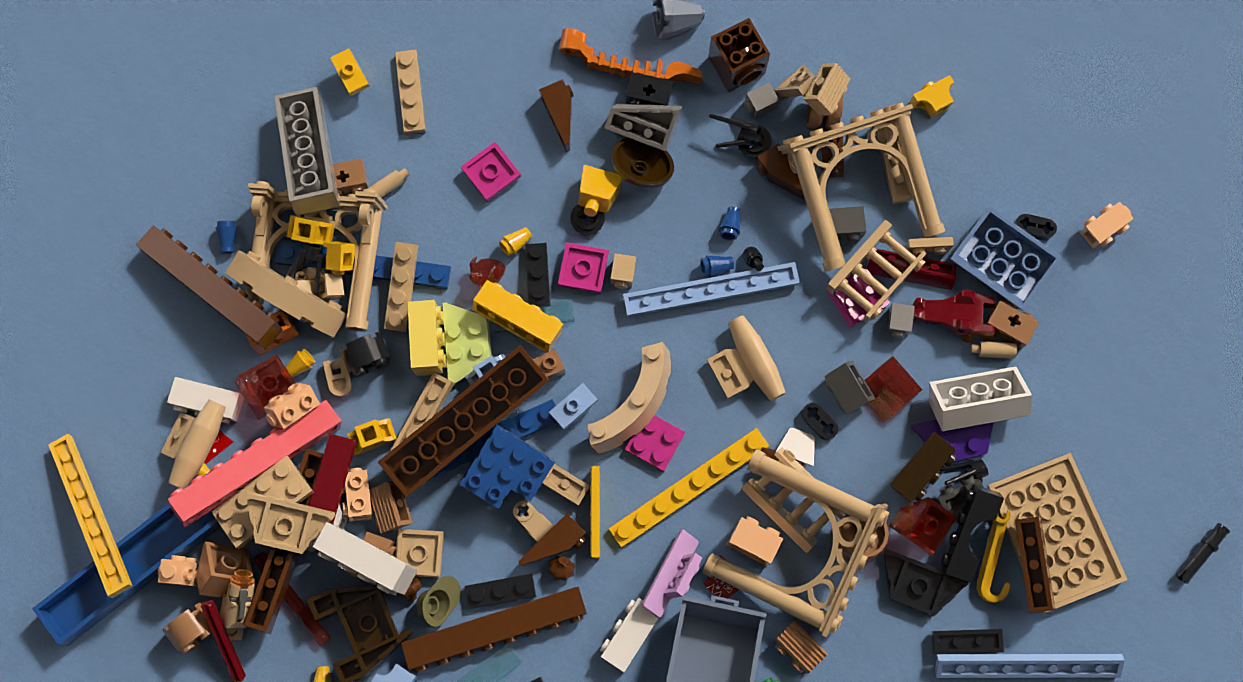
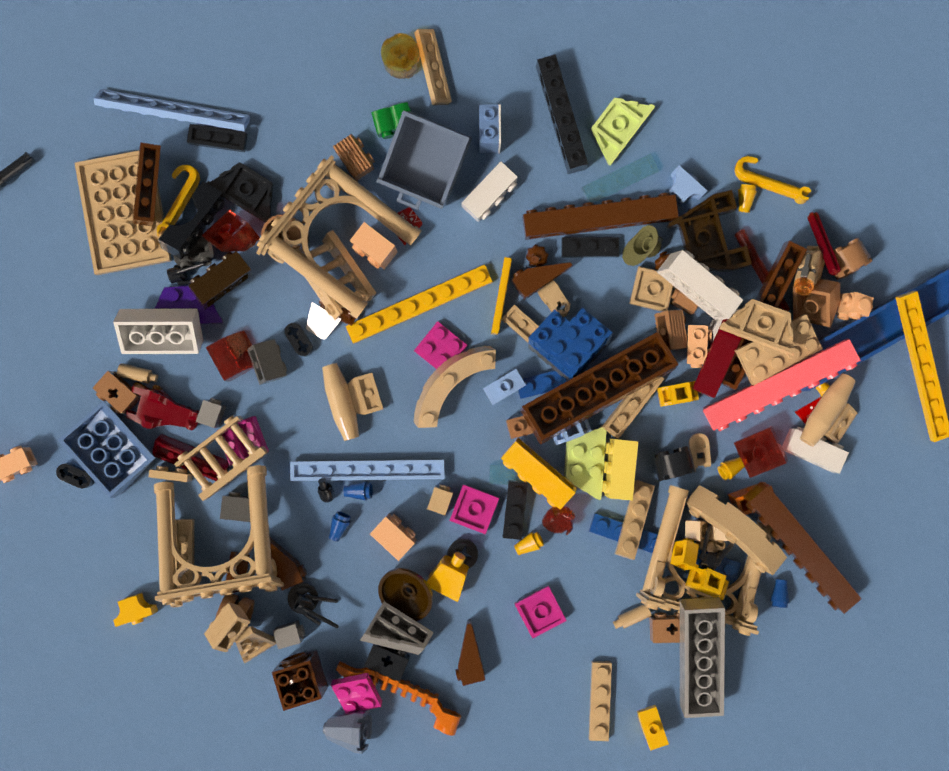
camera: 170 degrees left, 10 degrees up
(291, 405) = (744, 428): light nougat brick -> none
(667, 221) = (394, 536): none -> light nougat brick
(674, 574) = (444, 232): lavender bracket -> none
(675, 53) = (356, 693): none -> dark pink plate

